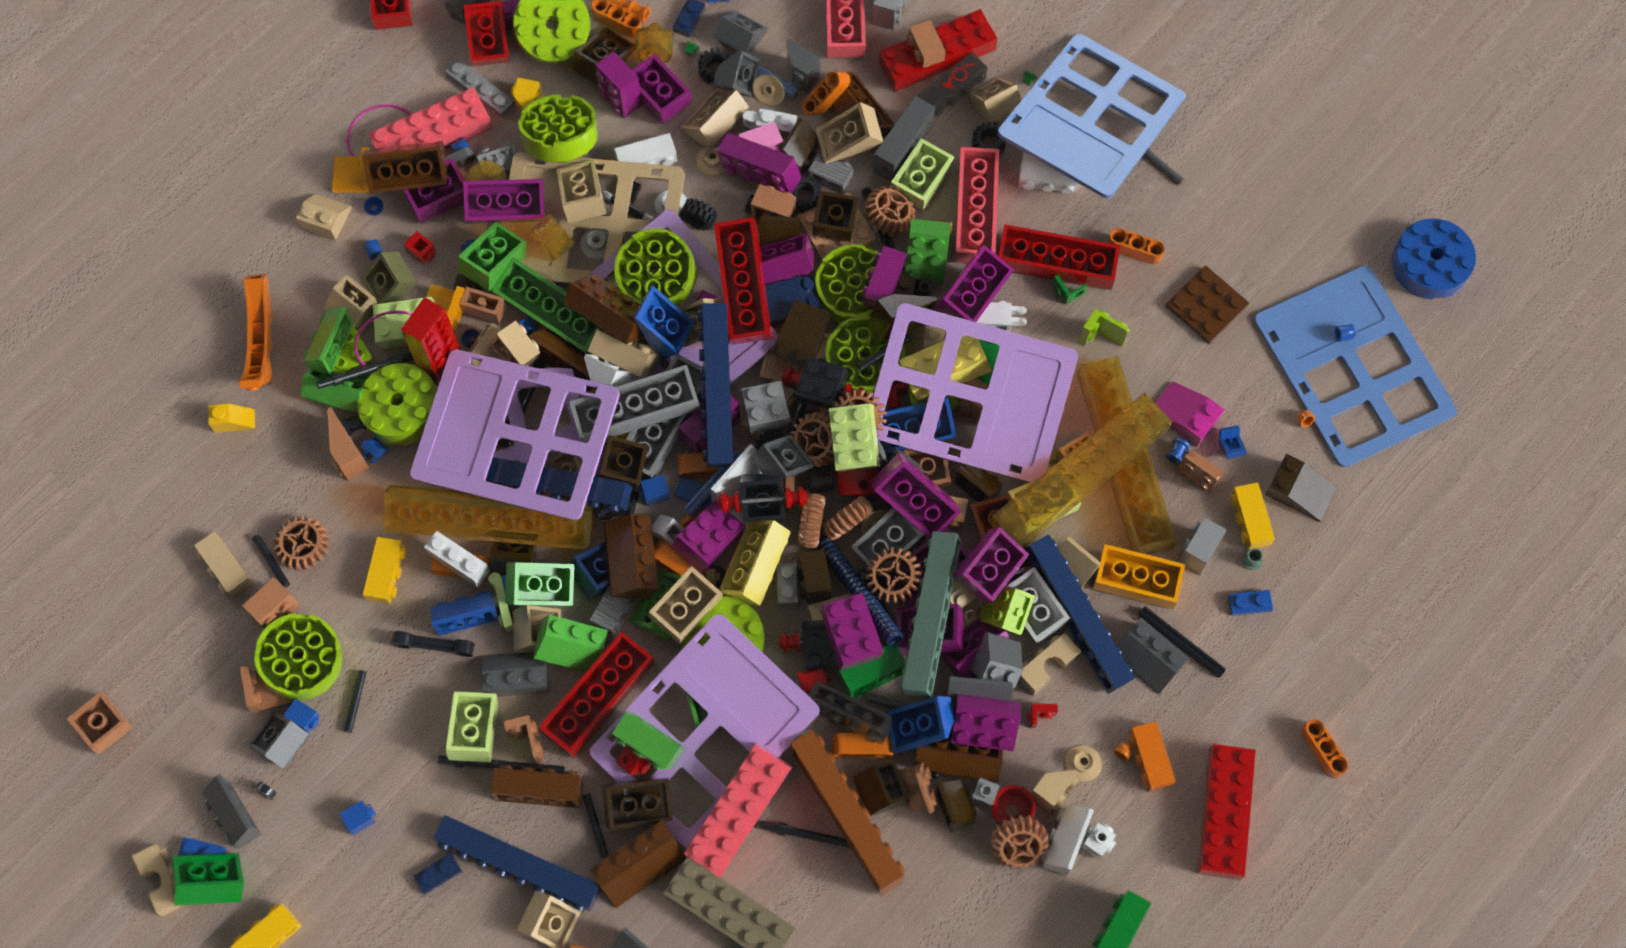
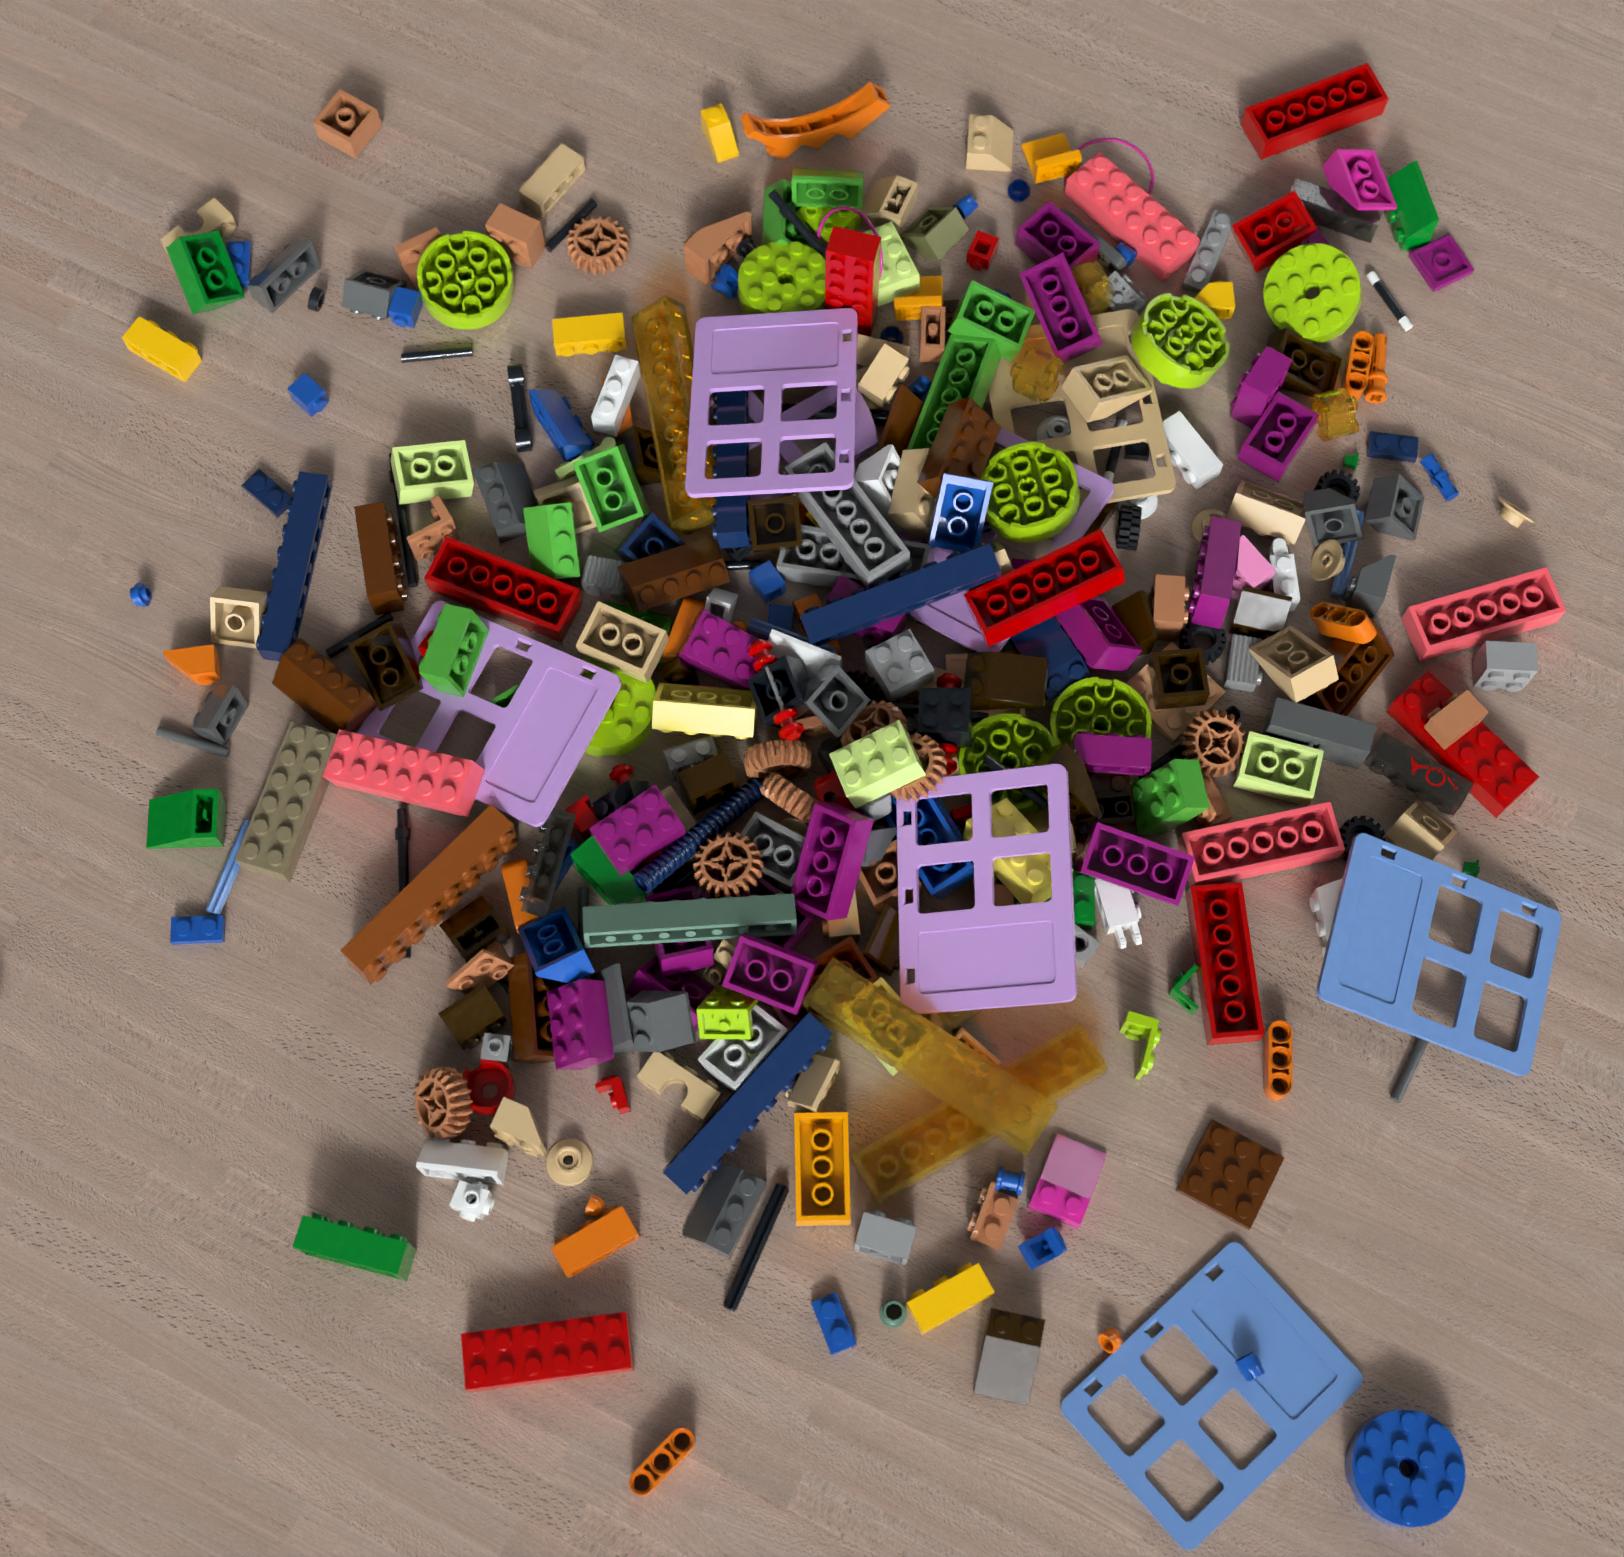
camera: 75 degrees right, 0 degrees up
(405, 167) = (1067, 197): reddish brown slope -> none

